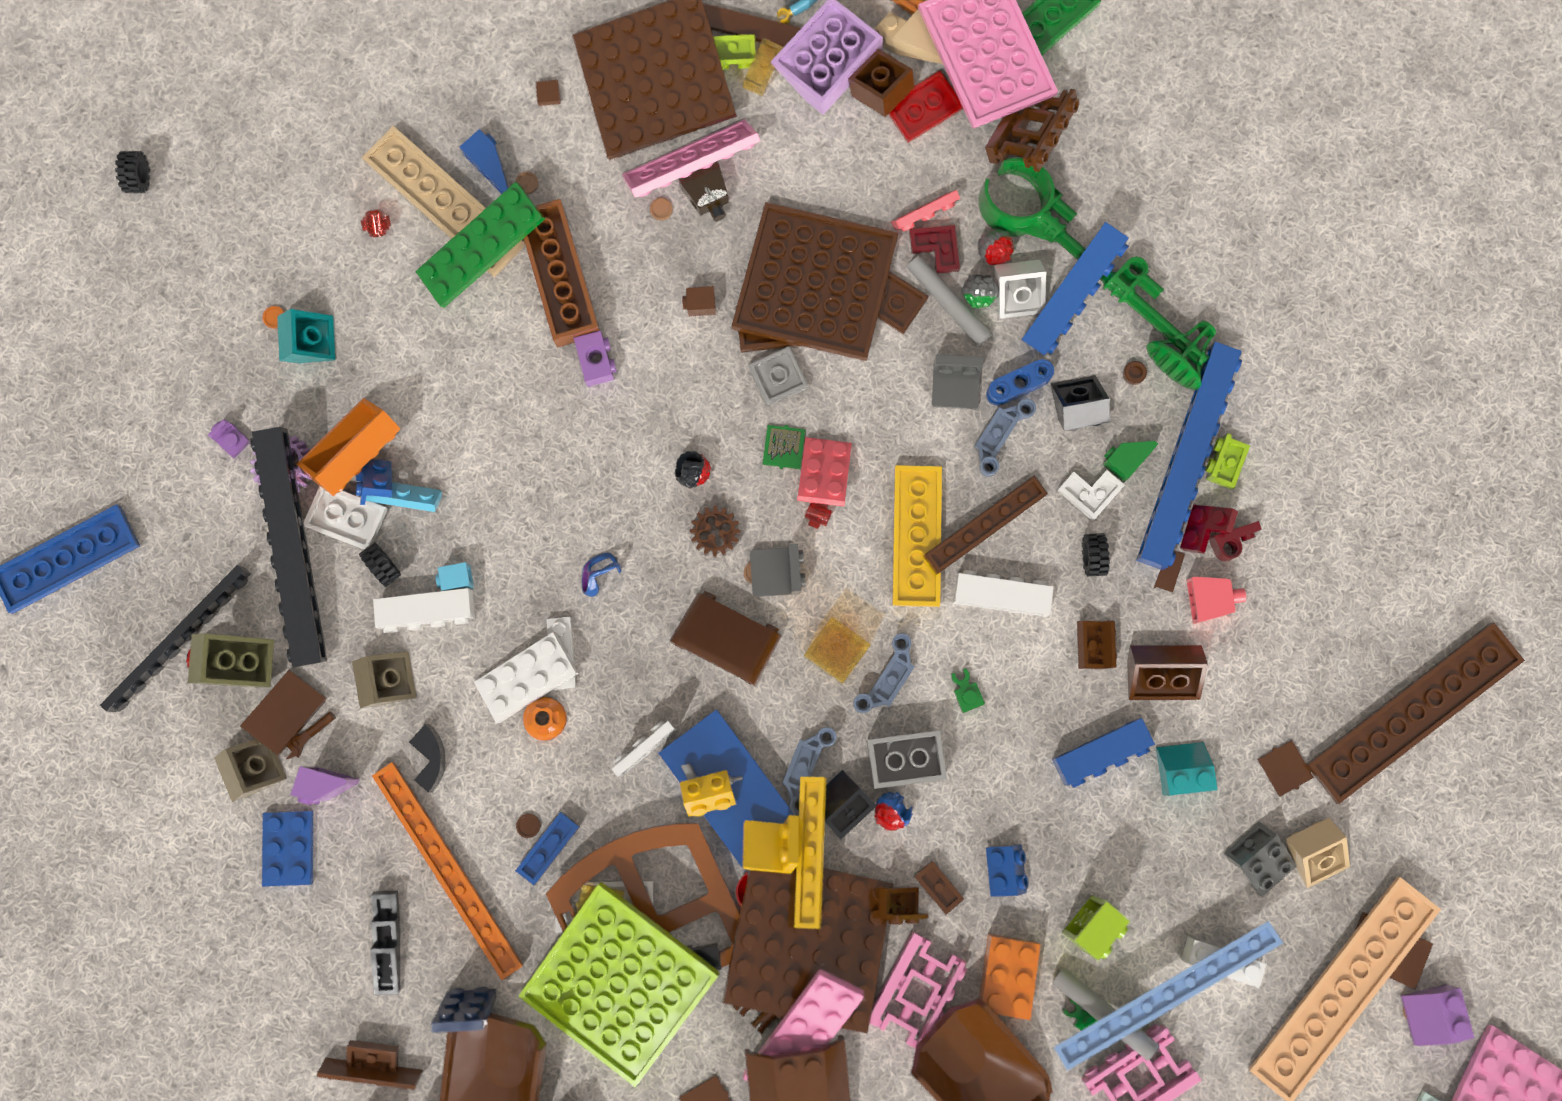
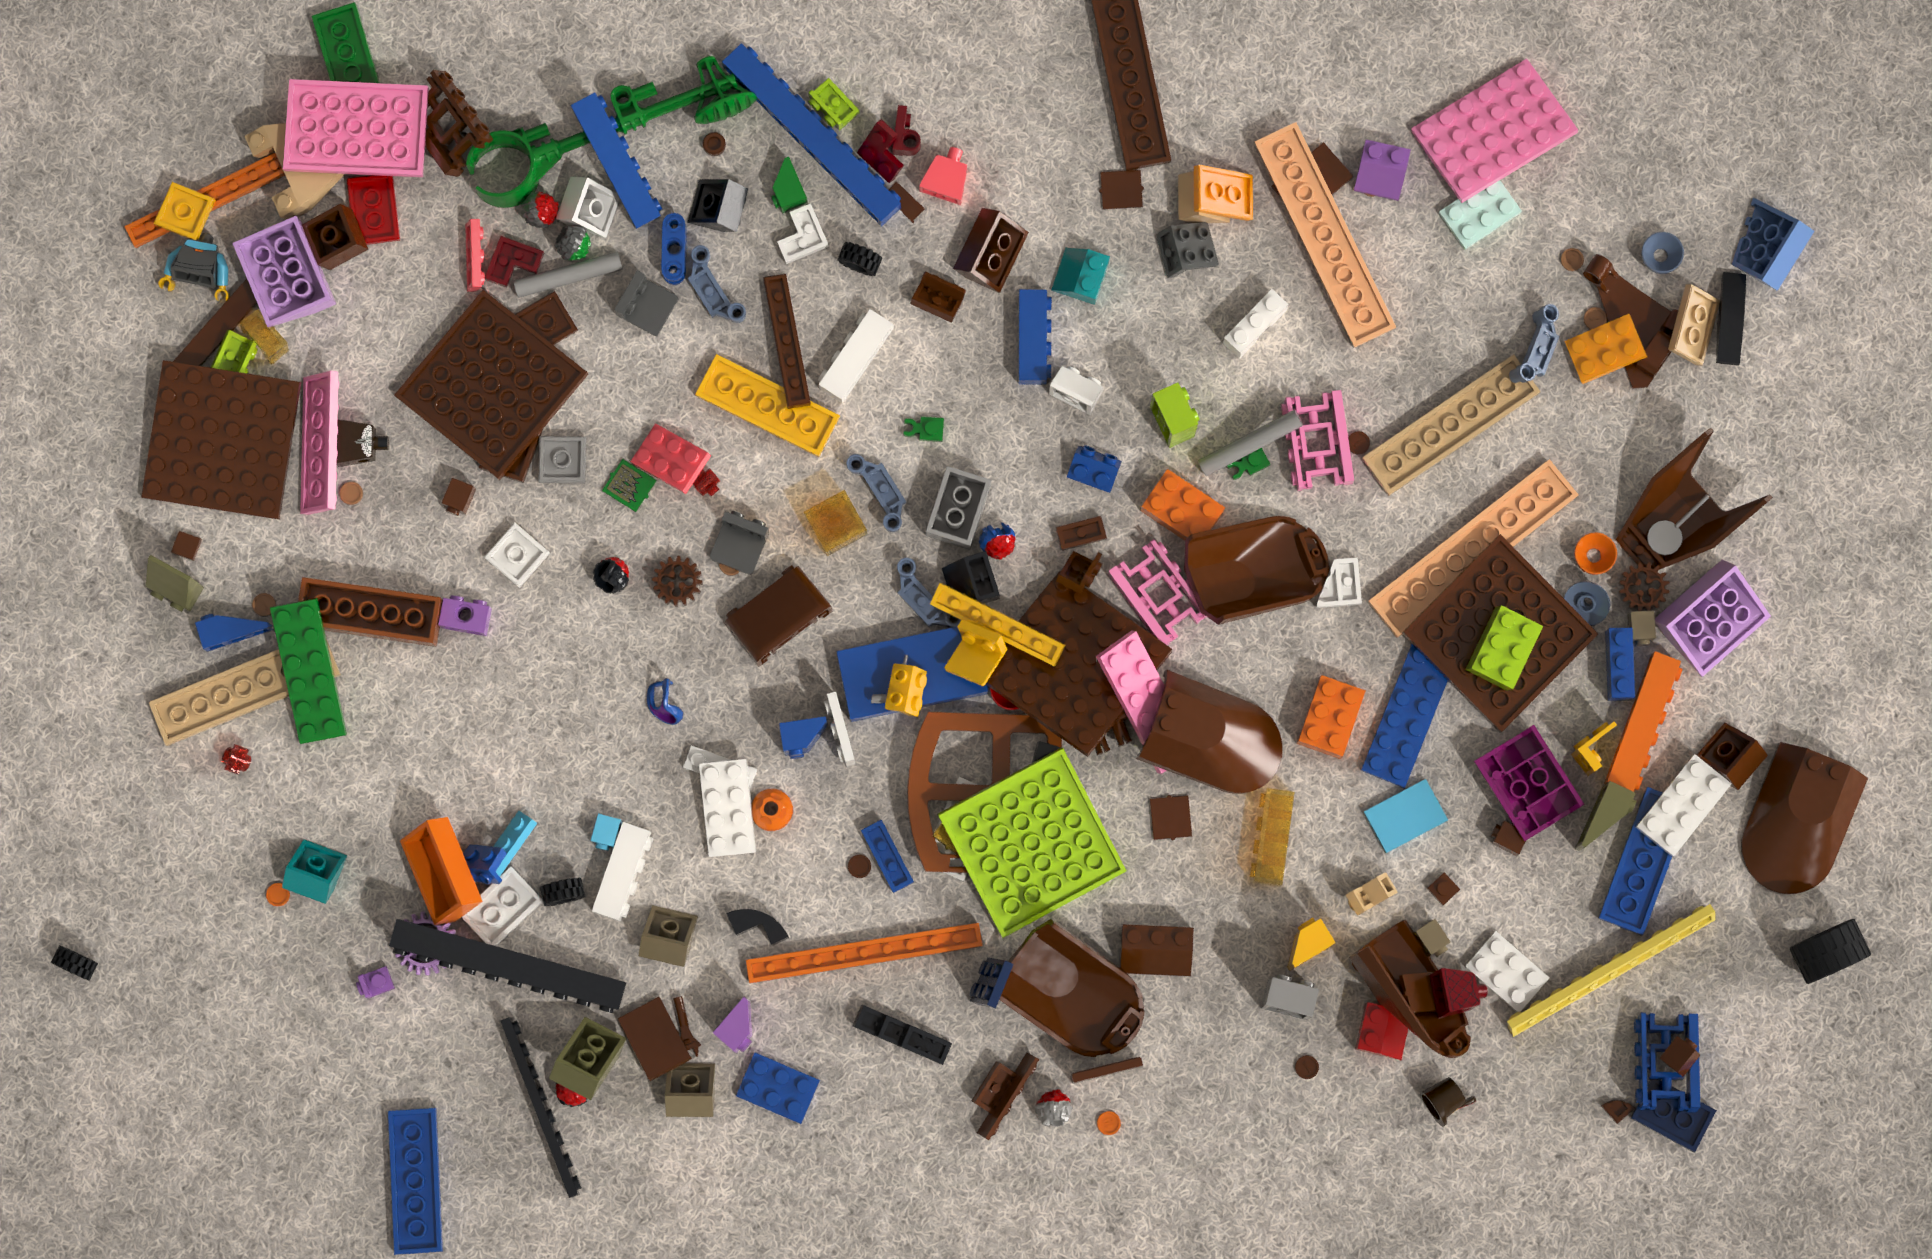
camera: 65 degrees left, 0 degrees up
(505, 93) = (171, 584): none -> olive slope
(620, 713) = (801, 735): none -> blue slope
(672, 377) = (516, 555): none -> white plate
(1073, 818) = (1076, 389): none -> white slope
(1167, 995) = (1256, 382): light blue plate -> none
(1334, 870) = (1223, 192): none -> light orange tile

